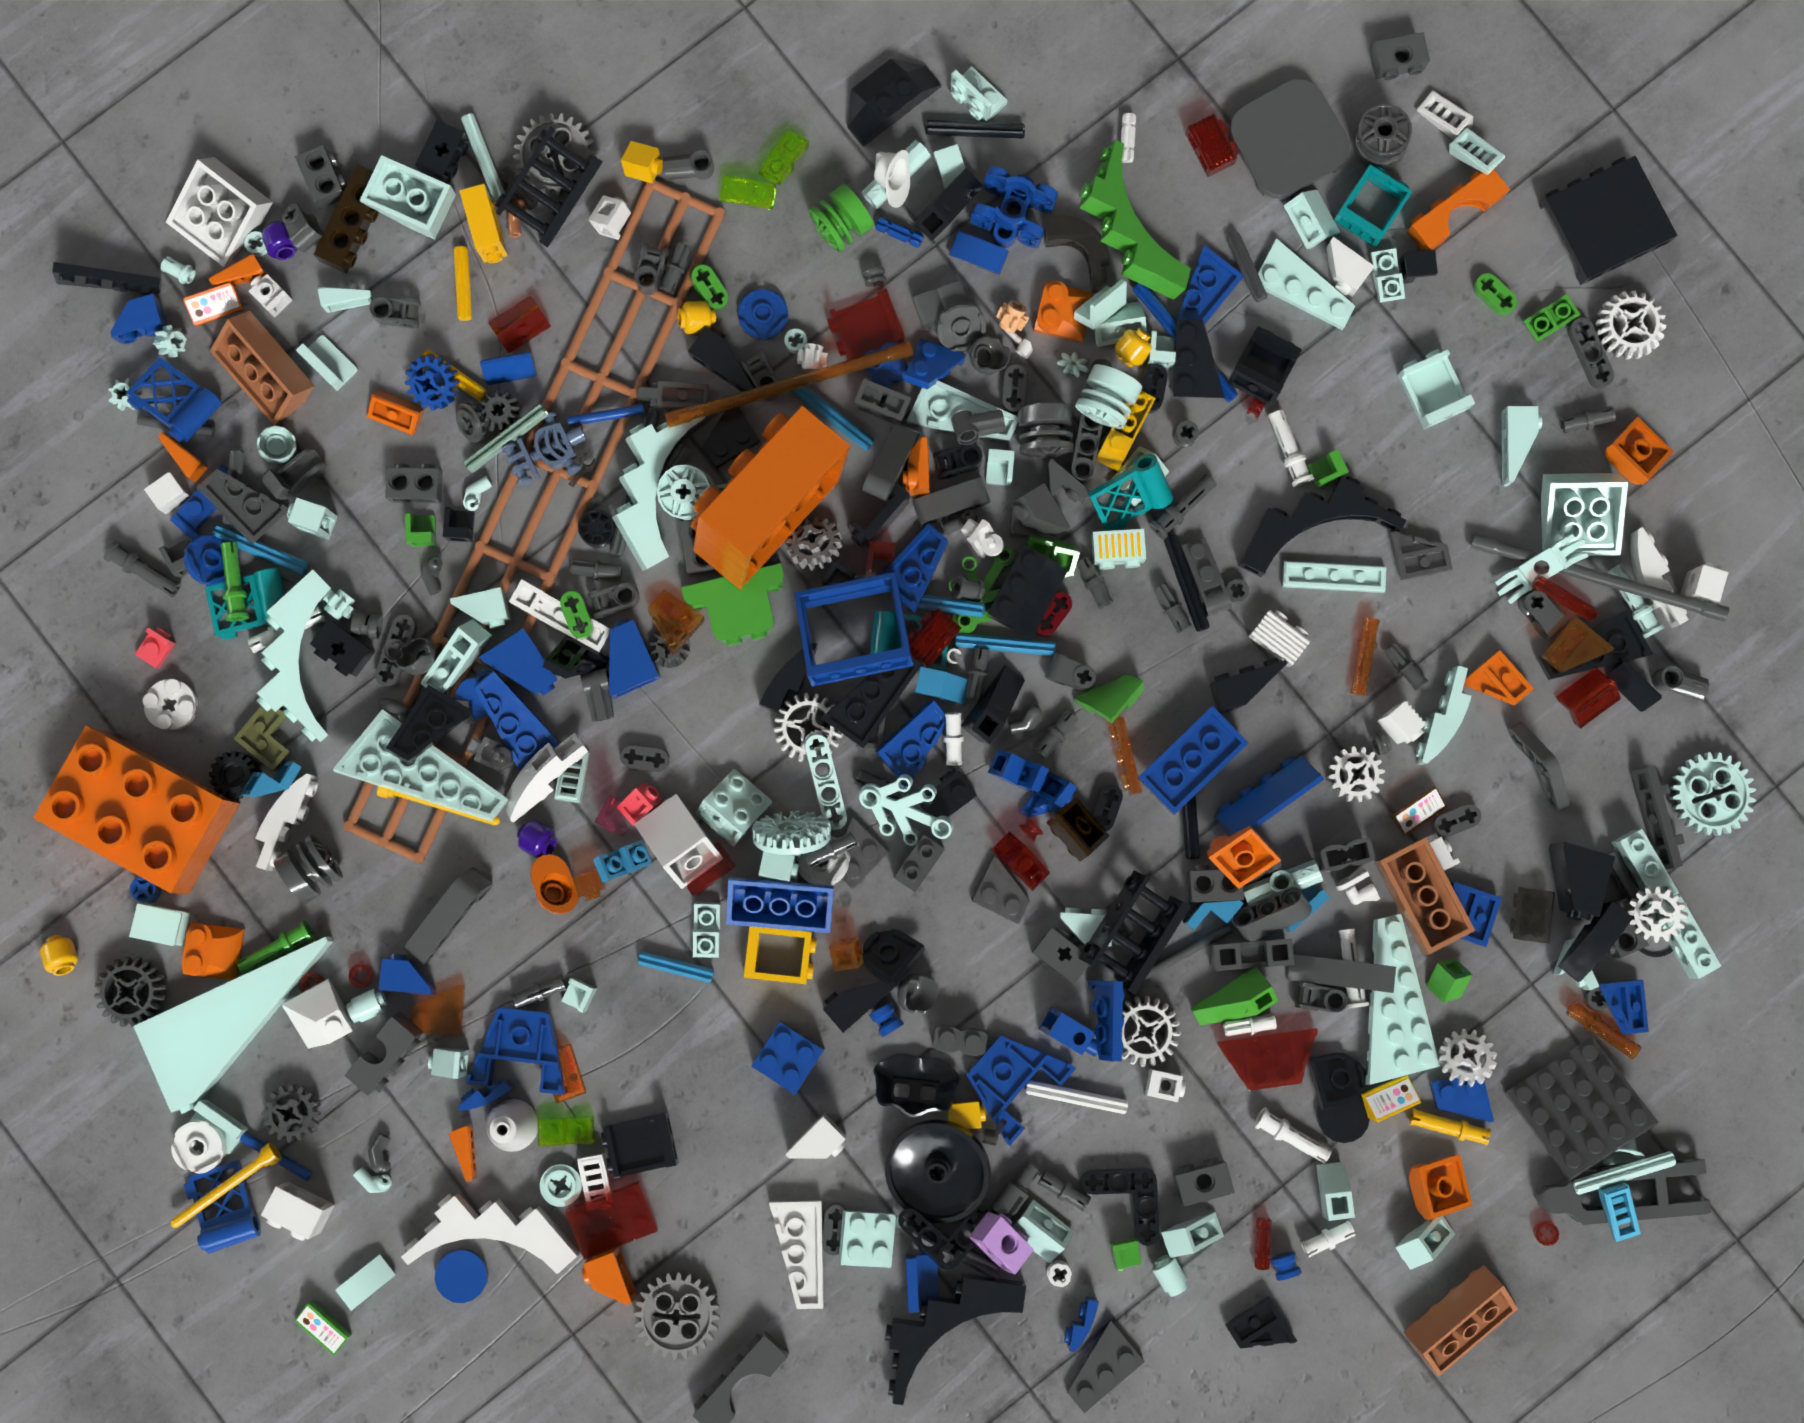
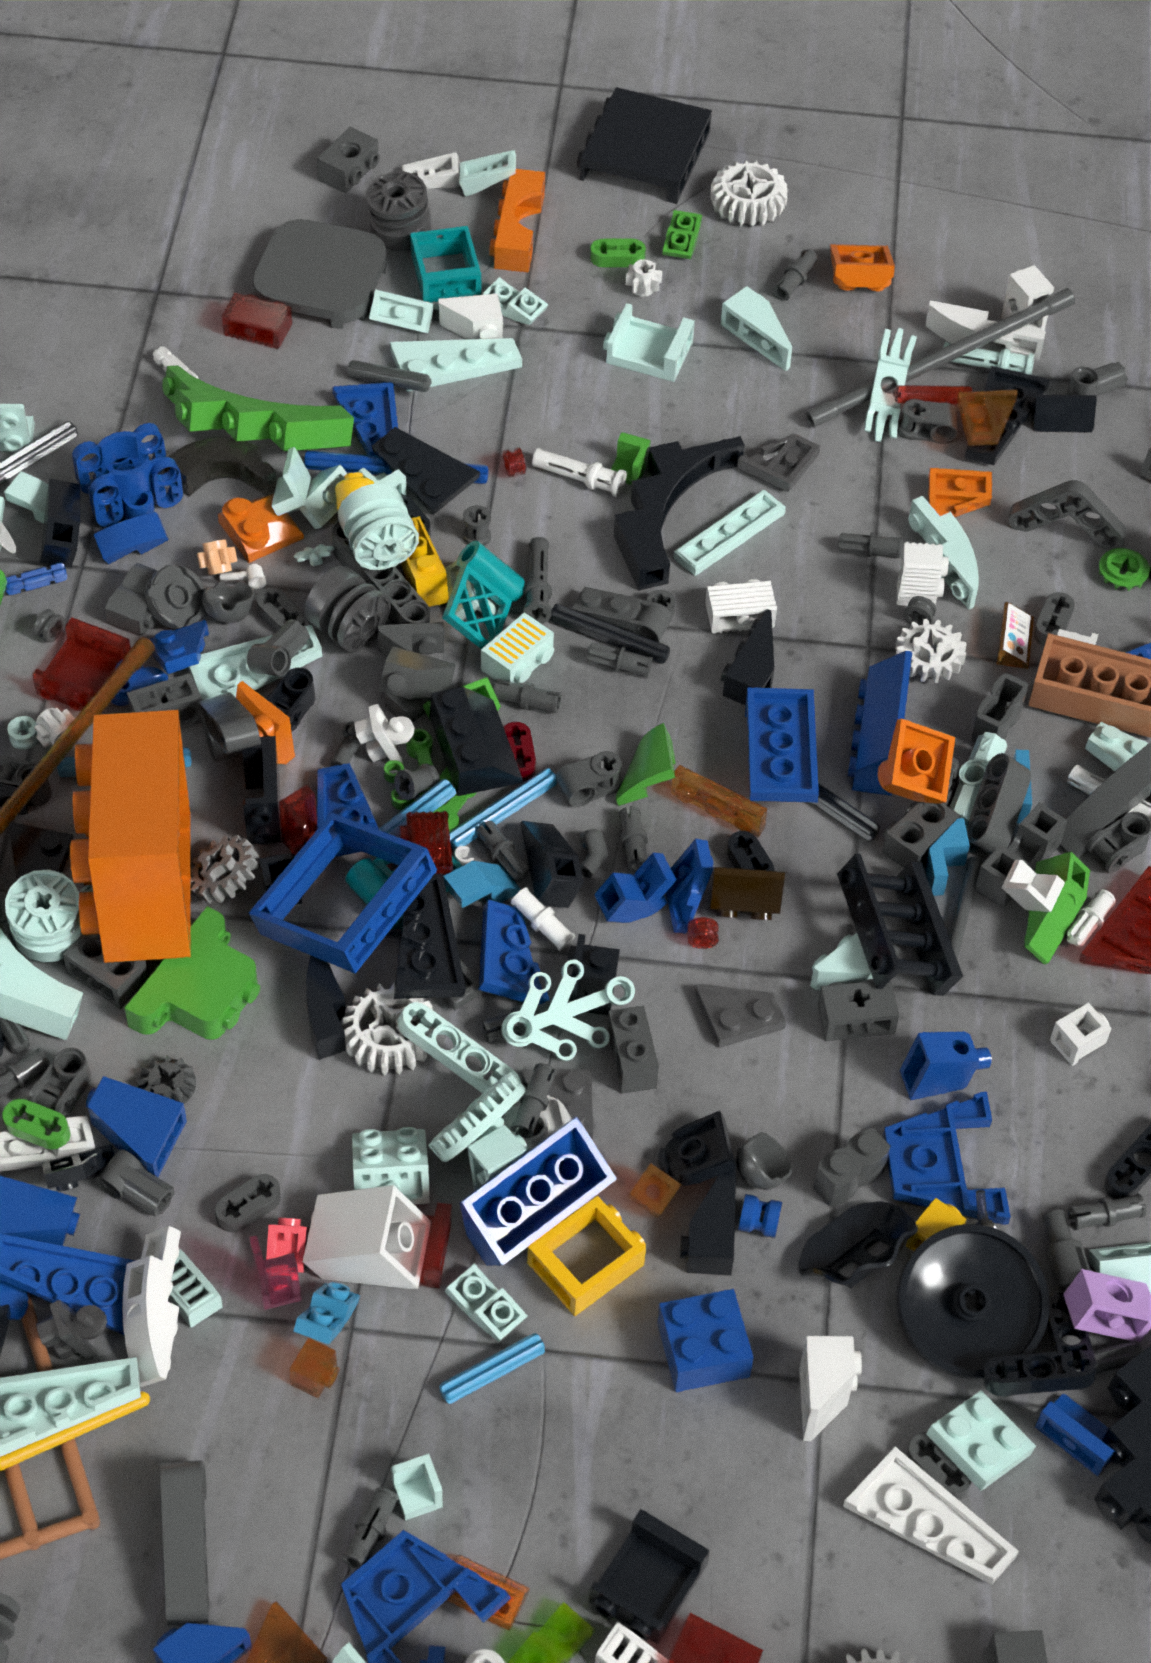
camera: 45 degrees left, 30 degrees down
(536, 839) = (209, 1375): dark purple head -> none
(553, 884) = (278, 1401): orange piece -> none
(674, 620) = (146, 1047): clear orange wing -> none
(951, 501) = (319, 737): dark grey beam -> none
(1000, 467) = (336, 676): light aqua panel -> none
(1020, 860) = (724, 963): clear red slope -> none
(1076, 1097) = (1017, 1121): white axle -> none
(1108, 1008) = (959, 1007): blue wing -> none
(1163, 1019) = (1029, 1003): white gear -> none
(1227, 985) = (1032, 890): none -> white panel
(1264, 366) = (487, 425): black panel -> none
(1356, 897) = (1054, 733): white piece -> none
(1365, 655) = (807, 541): clear orange pin -> none
(1418, 264) = (530, 270): black panel -> none
(1480, 329) = (643, 277): none -> white gear
(1549, 833) = (1115, 559): none -> bright green gear
(1576, 339) = (758, 247): dark grey beam -> none
(1587, 507) = (856, 327): light aqua slope -> none
(1589, 697) = (1041, 446): clear red panel -> none

